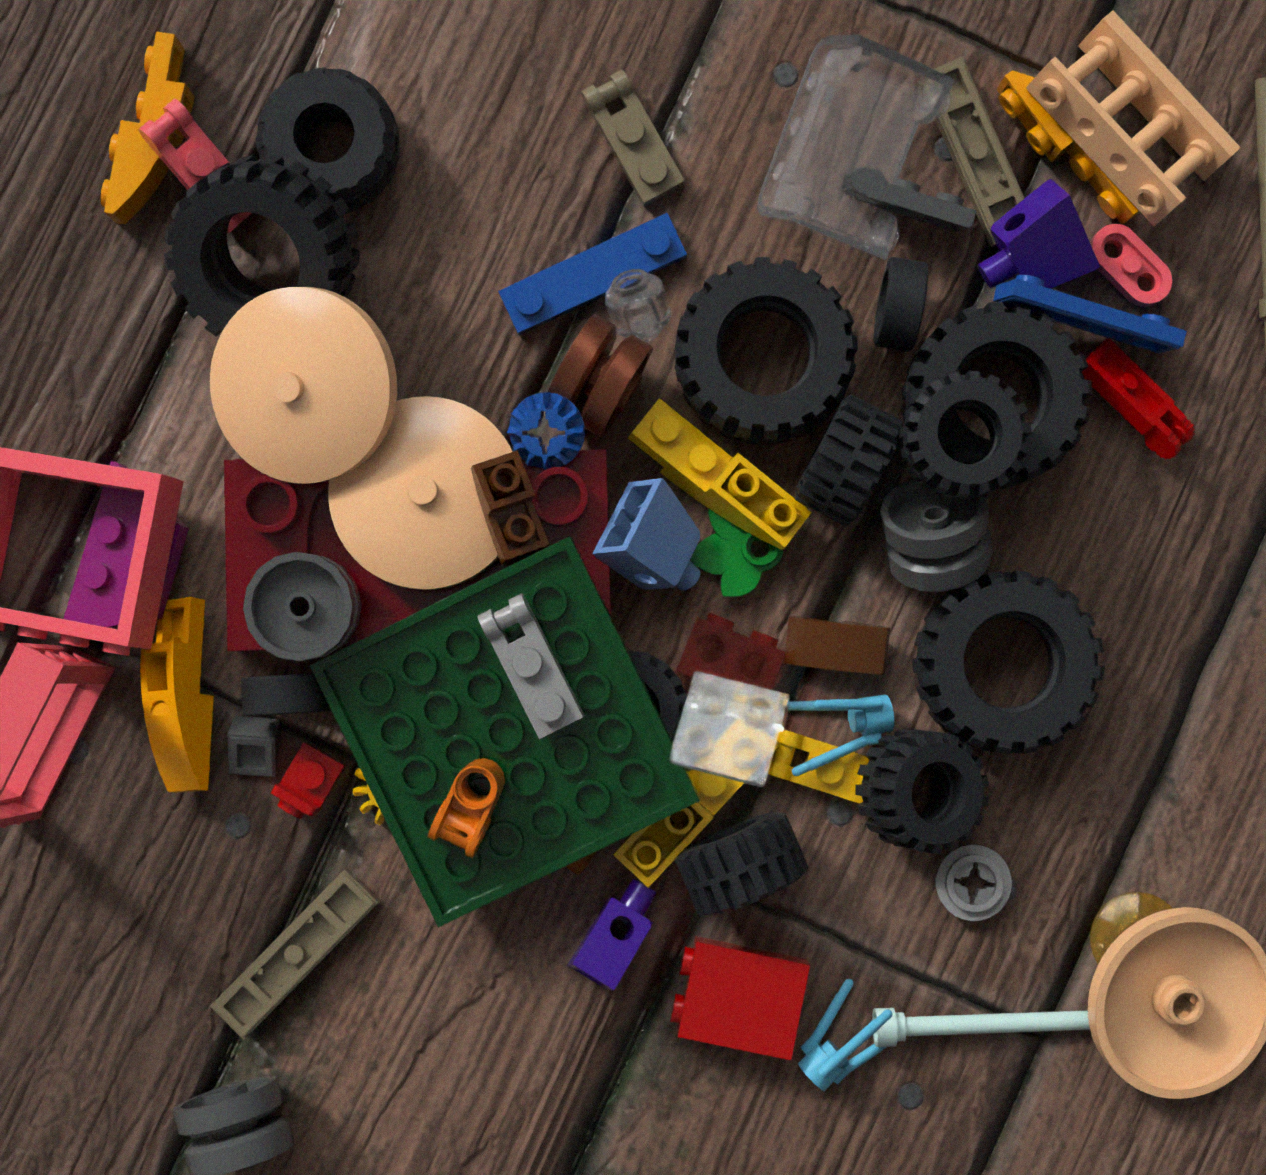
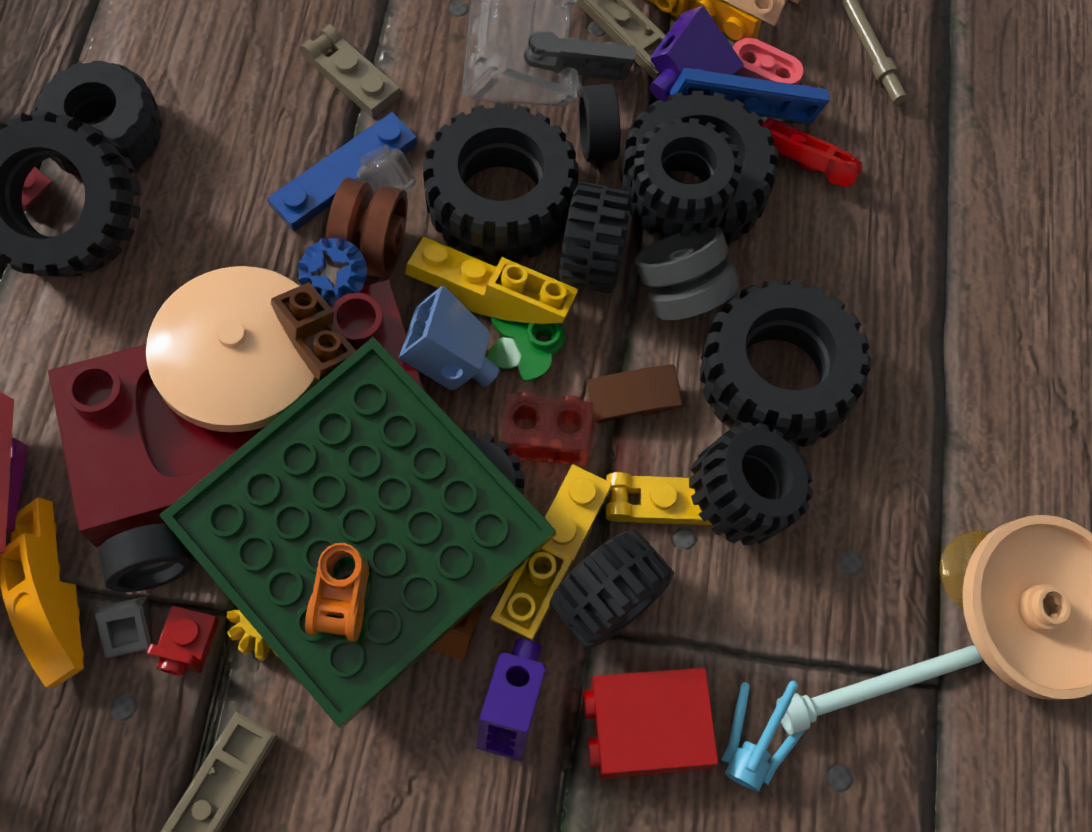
camera: 20 degrees left, 20 degrees down
(272, 602) = (139, 458): dark grey wheel -> none
(303, 384) = (105, 278): light nougat dish -> none
(531, 667) = (368, 454): light grey plate -> none
(729, 729) = (563, 460): clear bracket -> none
(865, 715) = (683, 441): medium azure plant -> none
(987, 899) = (832, 545): light grey gear -> none

